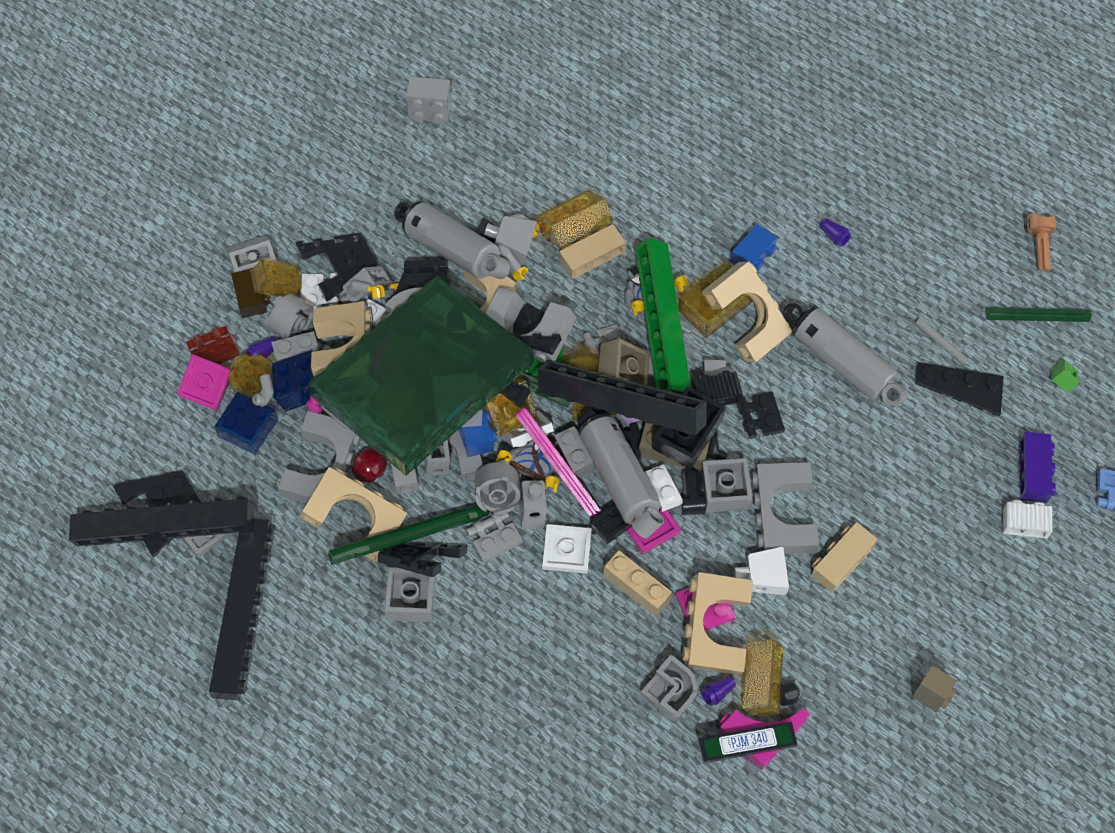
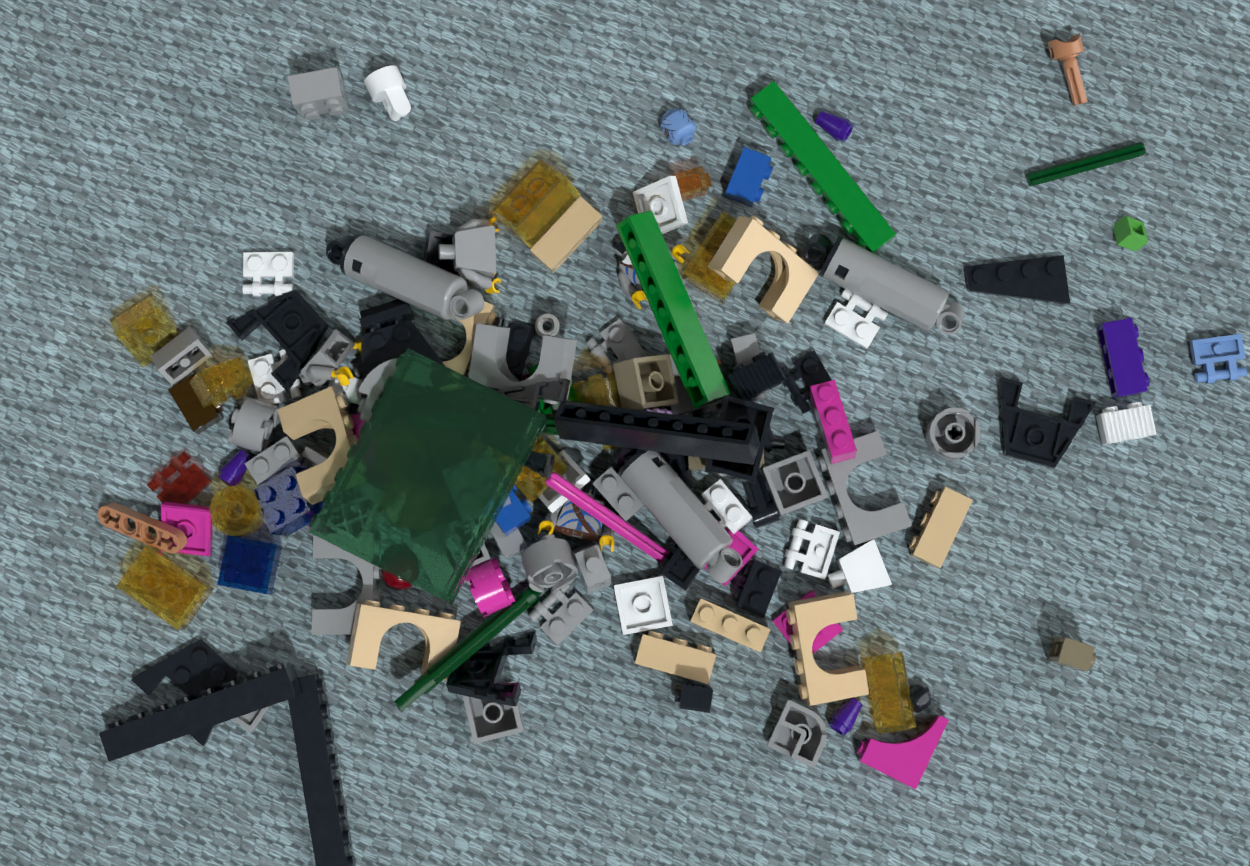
camera: 10 degrees left, 20 degrees up
(169, 369) = (141, 531): none -> nougat beam
(170, 419) = (165, 587): none -> clear yellow brick
(228, 228) = (144, 328): none -> clear yellow slope
(266, 393) = (260, 532): light grey arm -> none
(344, 212) = (268, 265): none -> white plate
(439, 492) = (489, 587): none -> dark pink brick
(484, 113) = (388, 87): none -> white piece
(582, 597) = (675, 657): none -> tan brick
(588, 630) = (694, 697): none -> black brick
(670, 562) = (758, 588): none -> black bracket
(681, 246) = (664, 201): none -> white plate
(705, 242) = (693, 183): none -> clear orange brick
(707, 199) = (678, 126): none -> medium blue head
(732, 548) = (819, 551): none -> white plate
(747, 742) = (893, 772): tile -> none
(772, 442) = (832, 422): none -> dark pink brick
(811, 382) = (852, 325): none -> white plate
(816, 258) = (821, 168): none -> green brick
(873, 484) = (962, 423): none -> light grey brick
(941, 341) = (985, 230): light grey bar -> none
(946, 508) = (1037, 436): none -> black wing

